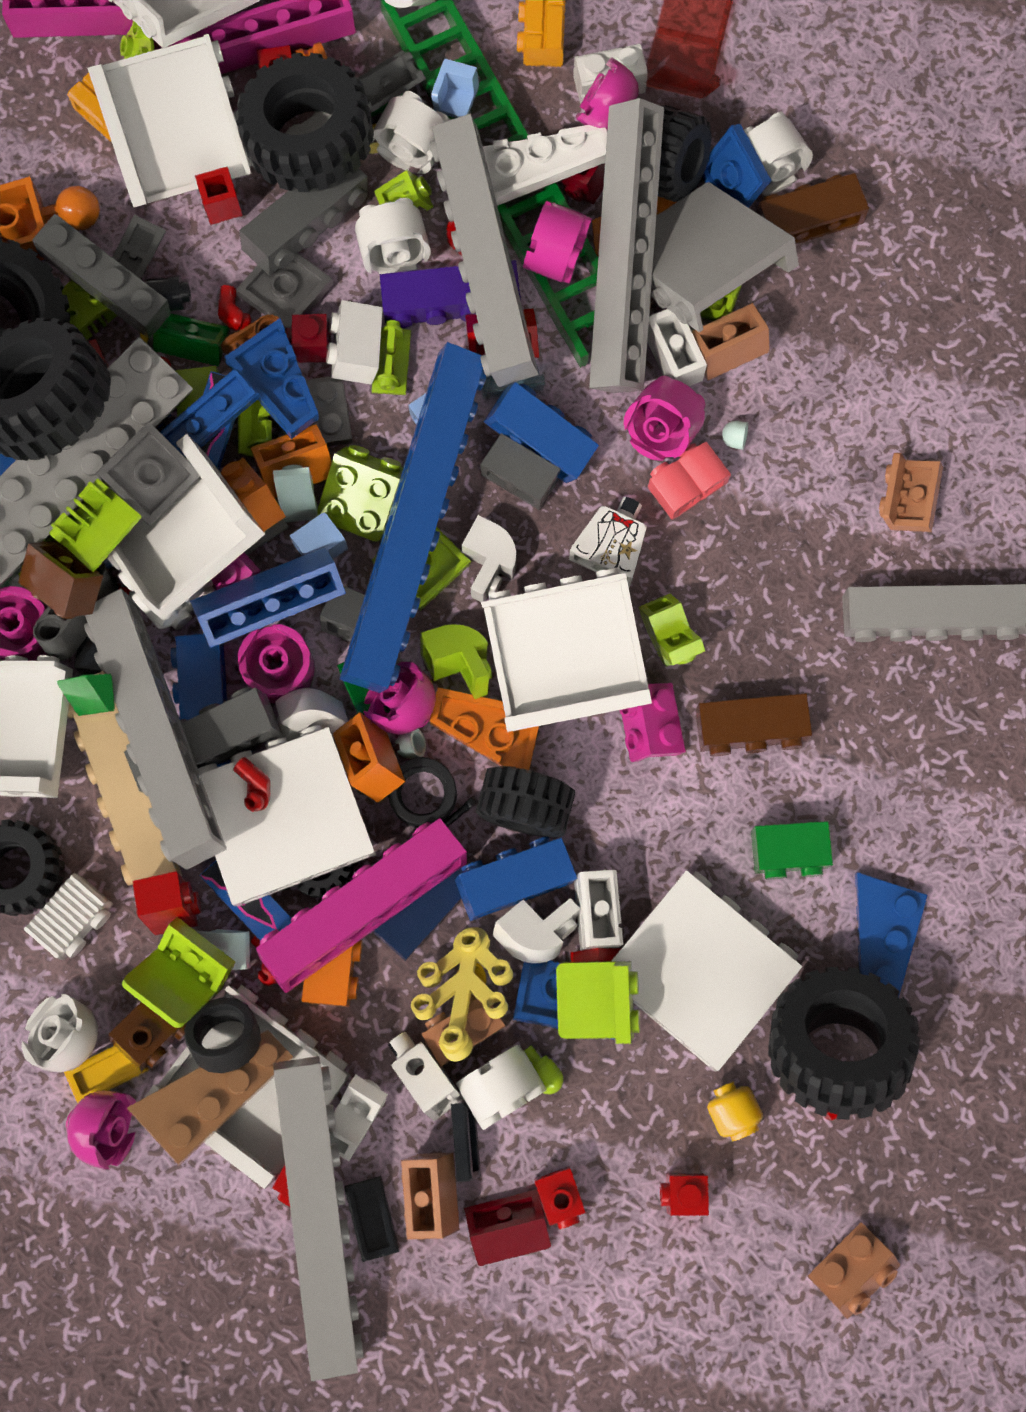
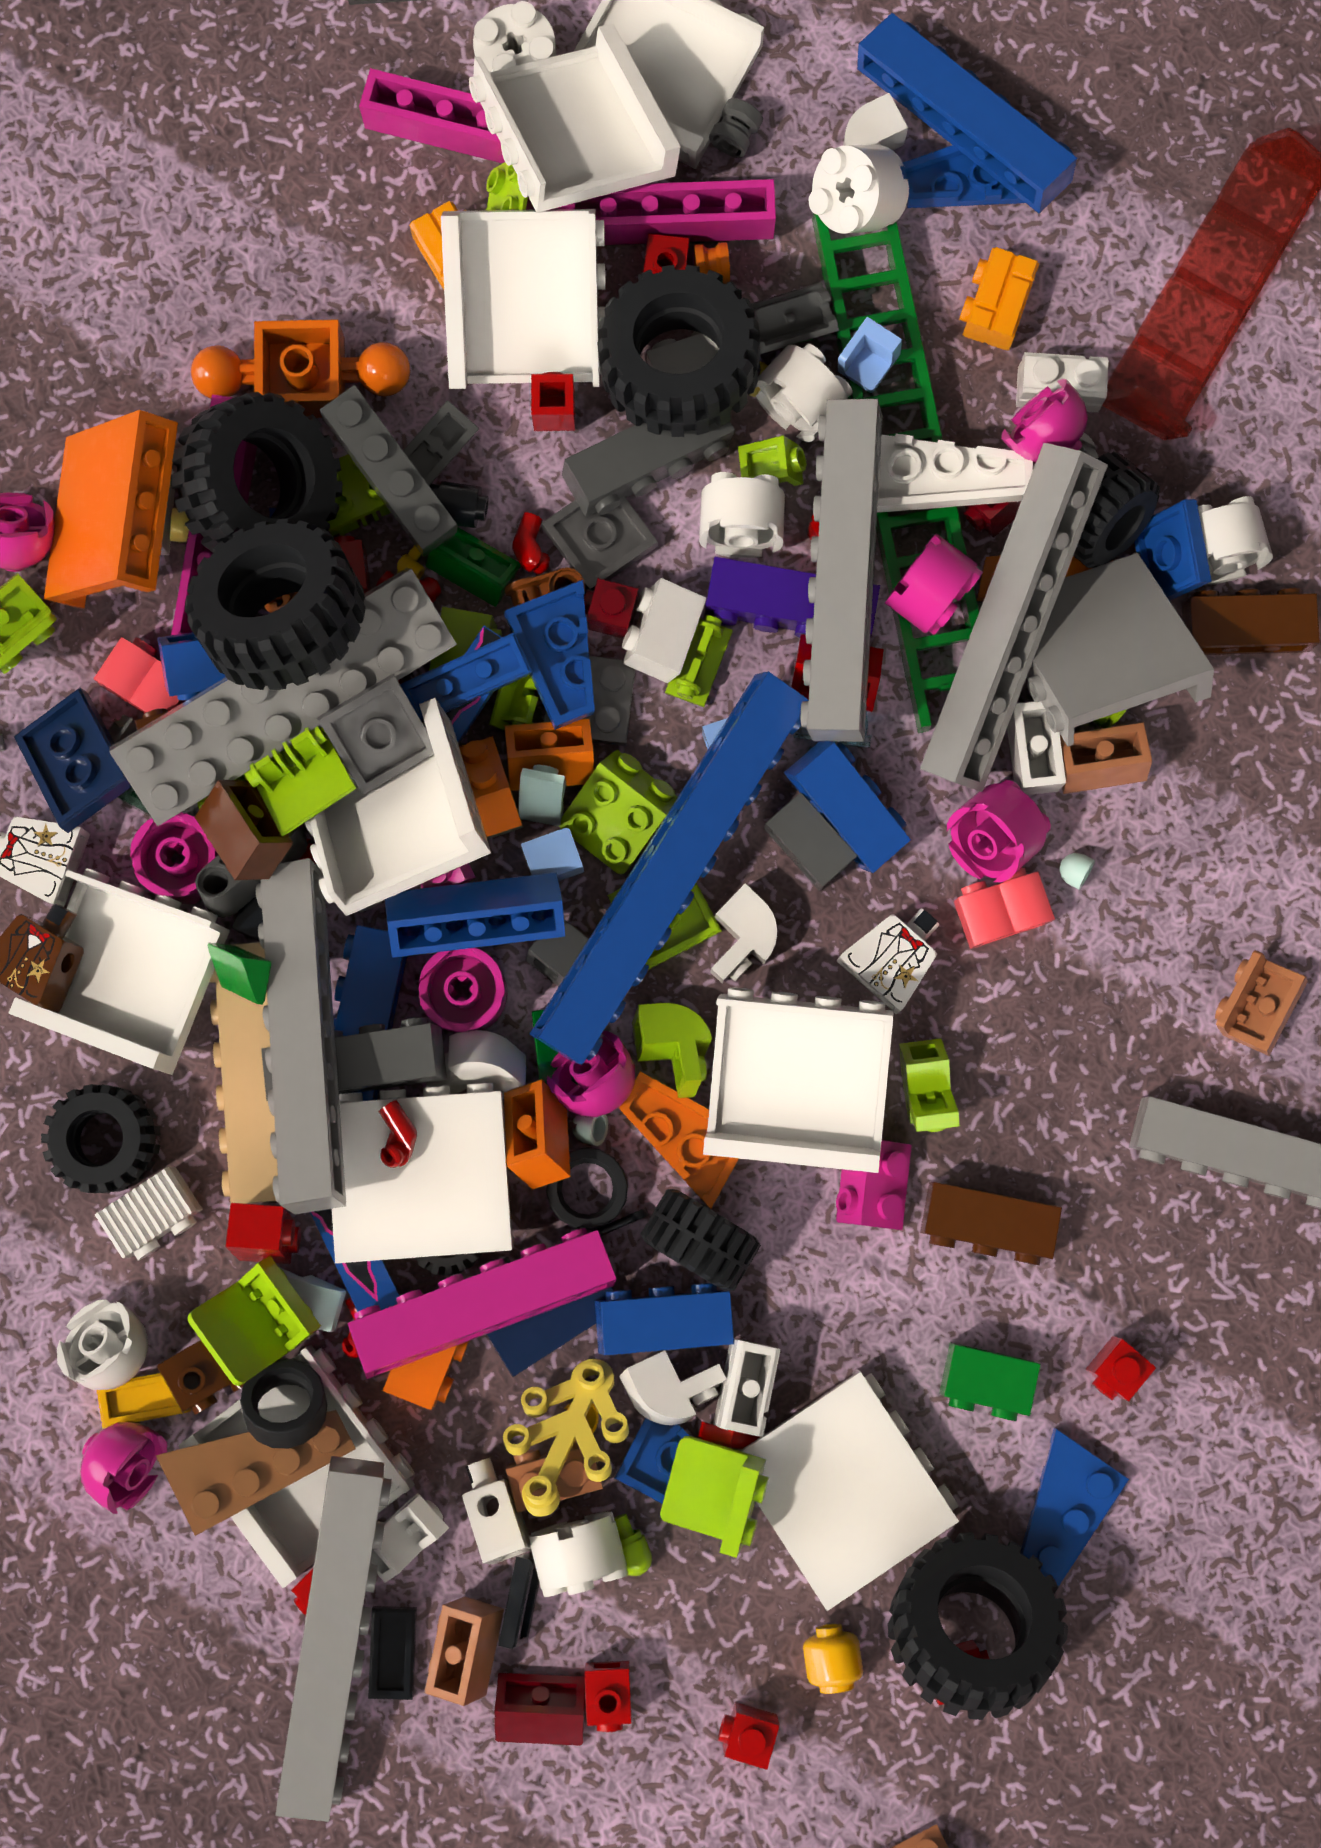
camera: 15 degrees right, 5 degrees up
(892, 808) = (1119, 1370): none -> red brick

